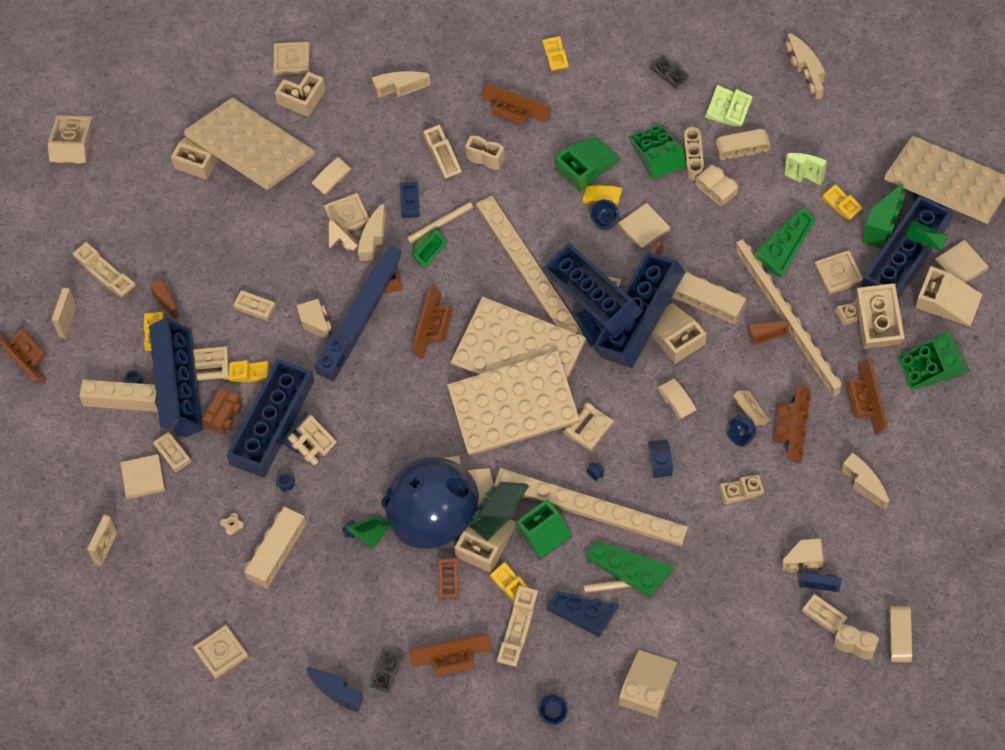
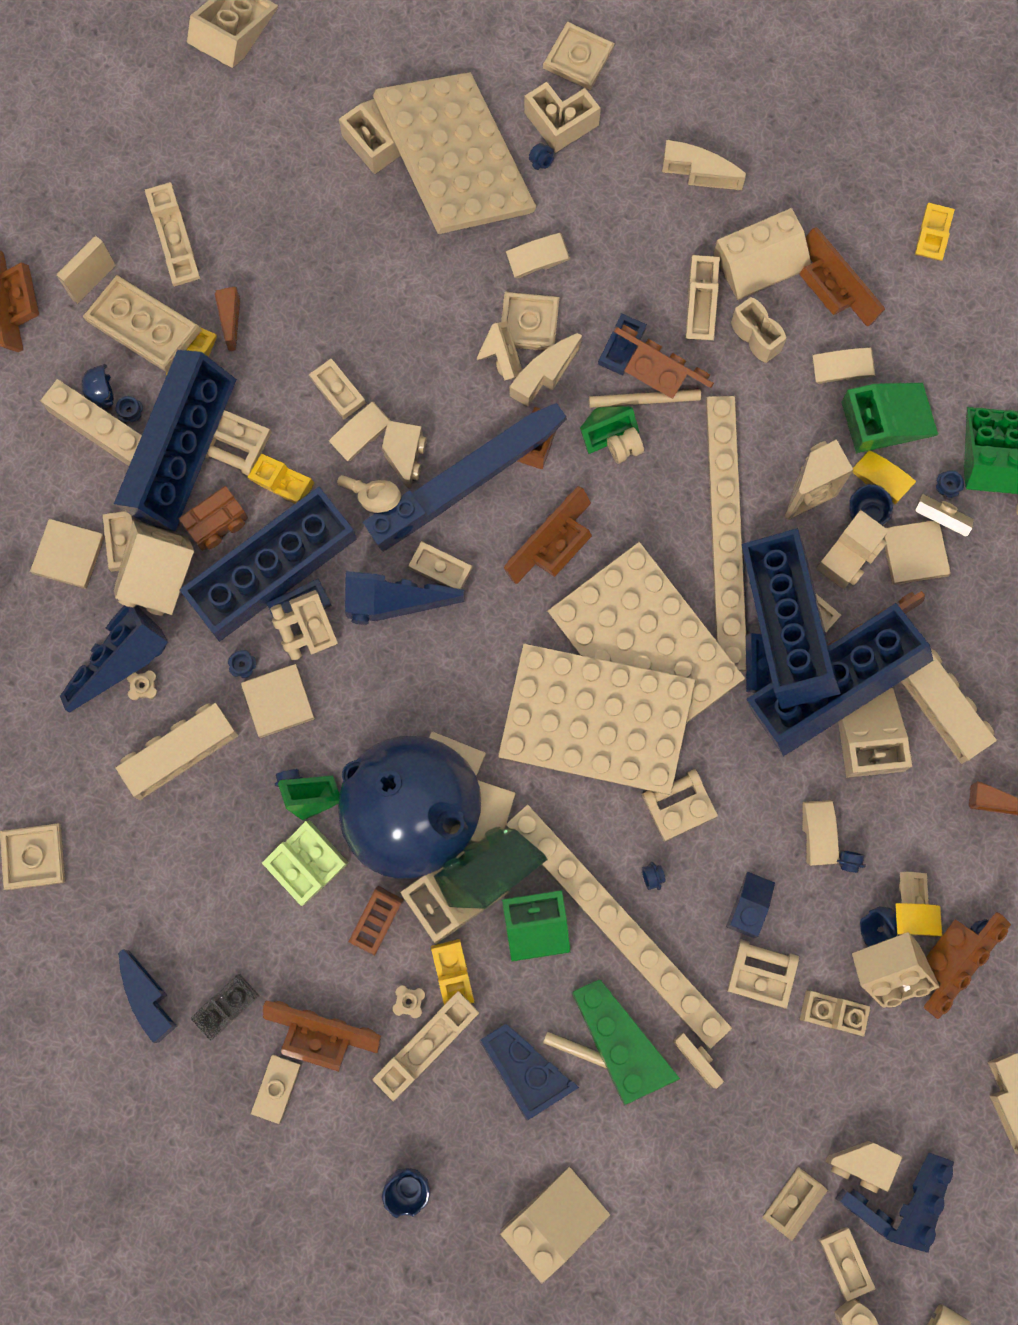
camera: 25 degrees right, 15 degrees up
(108, 371) = (97, 386): none -> dark blue hair
(113, 327) = (141, 323): none -> tan tile
(202, 453) = (153, 568): none -> tan slope
(210, 505) = (129, 647): none -> dark blue wedge
(282, 321) = (360, 431): none -> tan slope
(302, 122) = (541, 156): none -> dark blue plate
(311, 349) = (374, 496): none -> tan piece
(319, 491) = (277, 701): none -> tan tile
(347, 403) = (375, 599): none -> dark blue wedge
(373, 370) = (440, 566): none -> tan plate
(387, 569) = (305, 862): none -> yellowish green slope
(438, 201) = (657, 369): none -> dark orange bracket
(443, 252) = (625, 445): none -> tan wheel
(443, 699) = (276, 1089): none -> tan plate
(463, 111) = (763, 253): none -> tan slope
(490, 616) = (414, 1008): none -> tan plate
(544, 148) = (844, 364): none -> tan slope
(566, 211) = (819, 478): none -> tan slope
(608, 238) = (856, 545): none -> tan brick
(642, 177) = (952, 477): none -> dark blue plate
(648, 197) = (945, 514): none -> plate
(678, 552) = (699, 1059): none -> tan plate
(689, 495) = (762, 984): none -> tan plate
(703, 405) = (851, 861): none -> dark blue plate
(757, 411) = (918, 919): none -> yellow slope
(760, 445) = (895, 971): none -> tan slope
(778, 600) = (795, 1203): none -> tan slope
(848, 562) = (923, 1211): none -> dark blue wing

